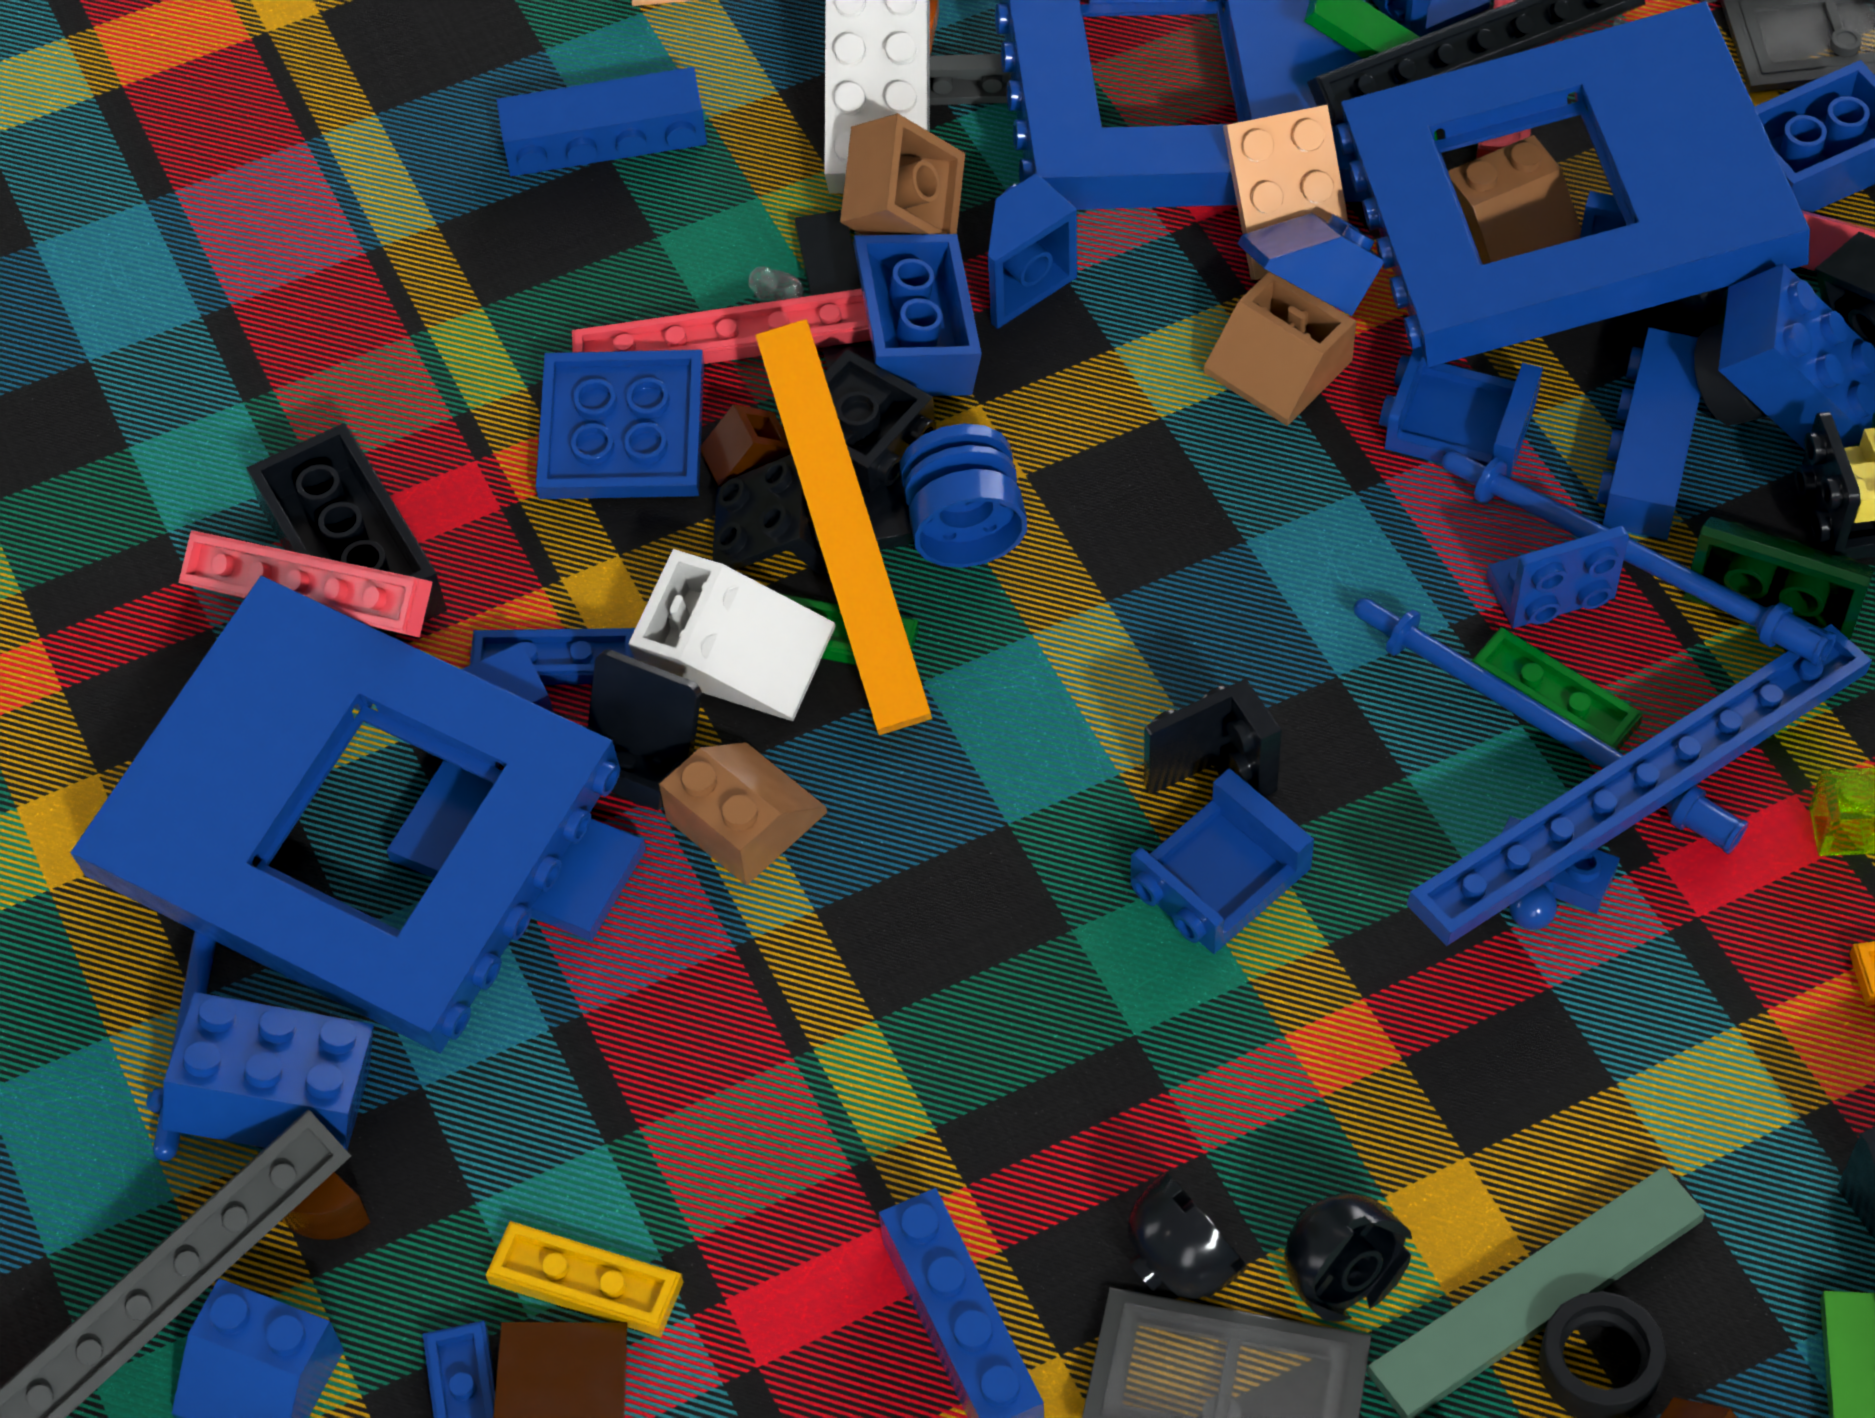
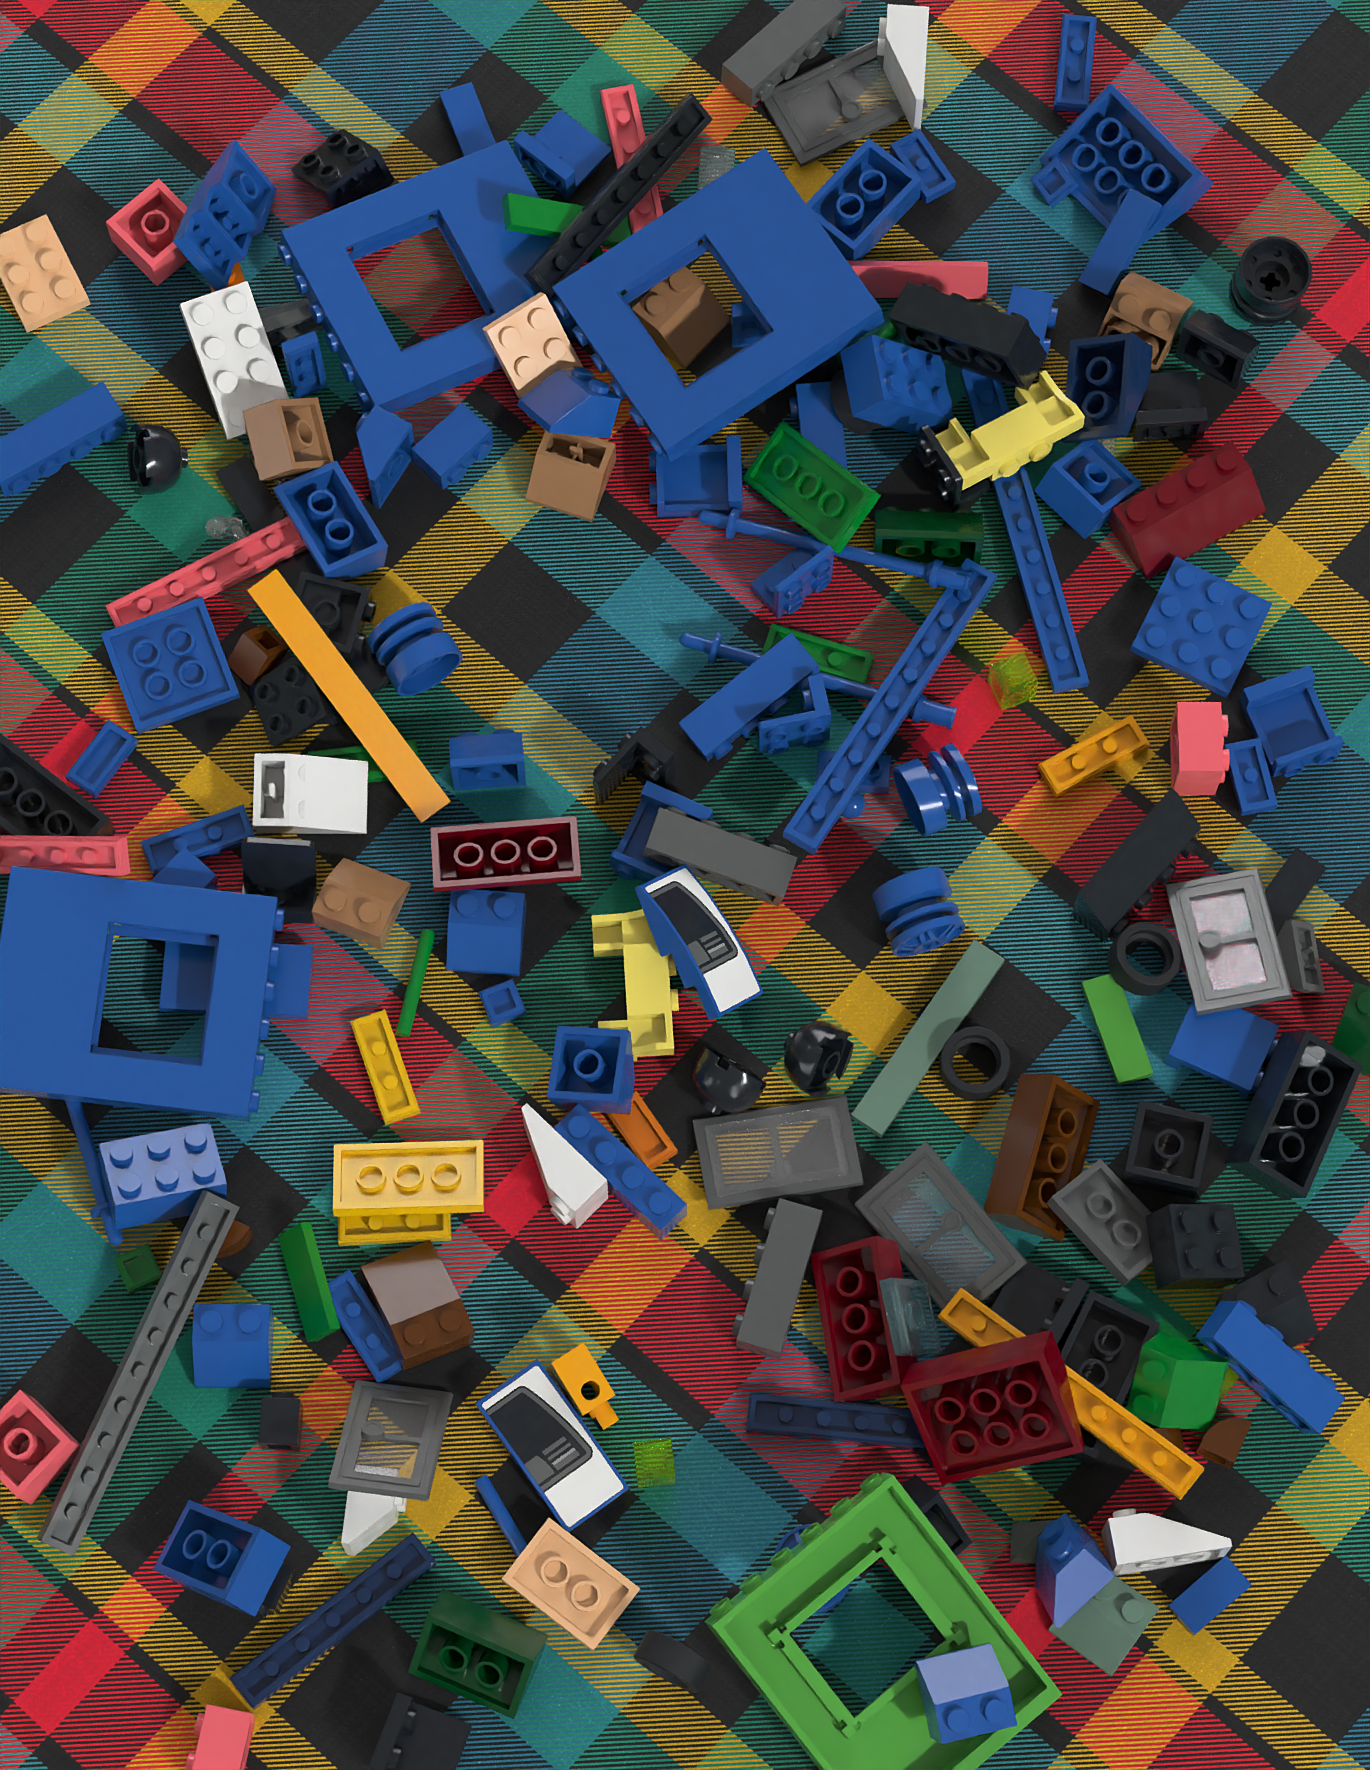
camera: 25 degrees left, 15 degrees up
(173, 1201) = (138, 1268): none -> green tile
(413, 1317) = (308, 1282): none -> green tile
(475, 514) = (102, 759): none -> blue tile
(632, 1215) = (408, 1178): none -> yellow plate
(674, 1048) = (385, 1067): none -> yellow tile
(722, 175) = (155, 458): none -> black cylinder
(771, 945) = (415, 983): none -> green bar
(875, 1310) = (569, 1179): none -> white slope
(888, 1016) = (502, 1003): none -> blue tile
(905, 902) = (485, 932): none -> blue slope
(965, 105) = (304, 365): none -> blue tile
(978, 796) = (505, 854): none -> dark red slope
(979, 1148) = (592, 1070): none -> blue slope
(1004, 675) = (487, 760): none -> blue slope
(1023, 1276) = (643, 1134): none -> orange tile
(1115, 1057) = (646, 981): none -> light yellow bracket
(1128, 275) = (453, 447): none -> blue brick
(1219, 1015) = (700, 940): none -> slope
(1300, 909) = (720, 856): none -> dark grey brick
(1430, 706) = (749, 697): none -> blue brick
(1488, 767) = (804, 729): none -> blue bracket
(1586, 1088) = (918, 911): none -> blue wheel
(1625, 456) = (811, 487): none -> green tile
(1692, 920) = (943, 787): none -> blue wheel

